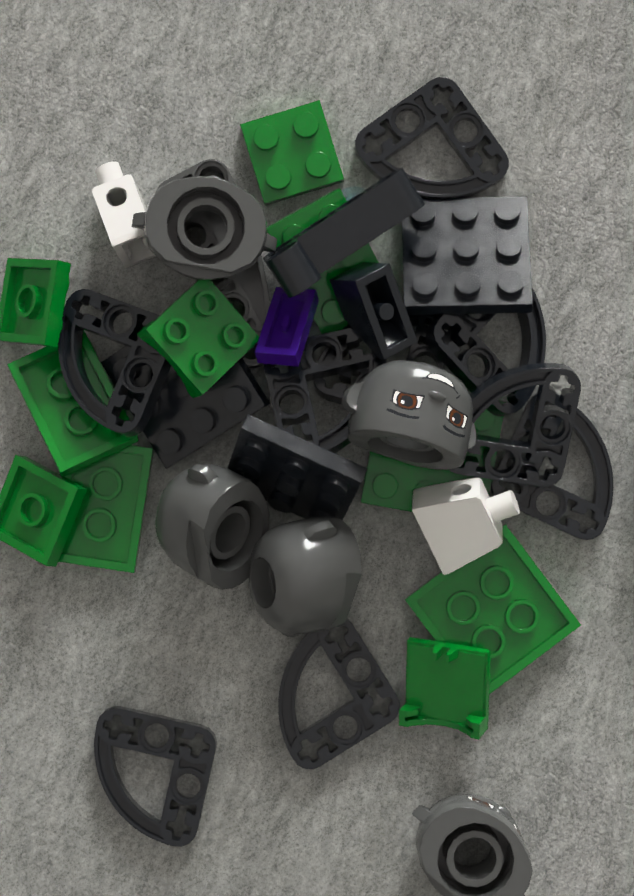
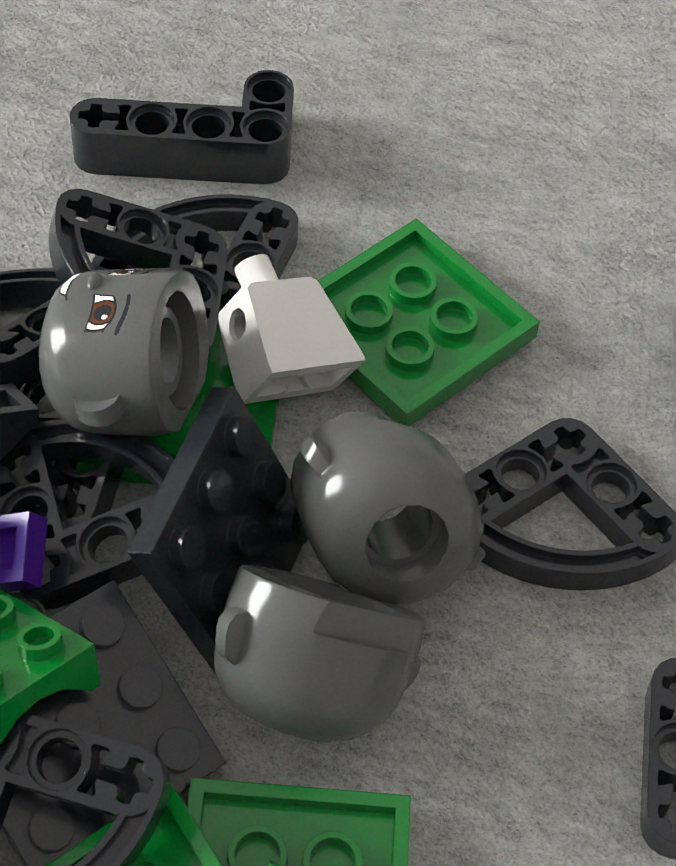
camera: 95 degrees left, 35 degrees down
(447, 686) = (526, 353): green piece -> none

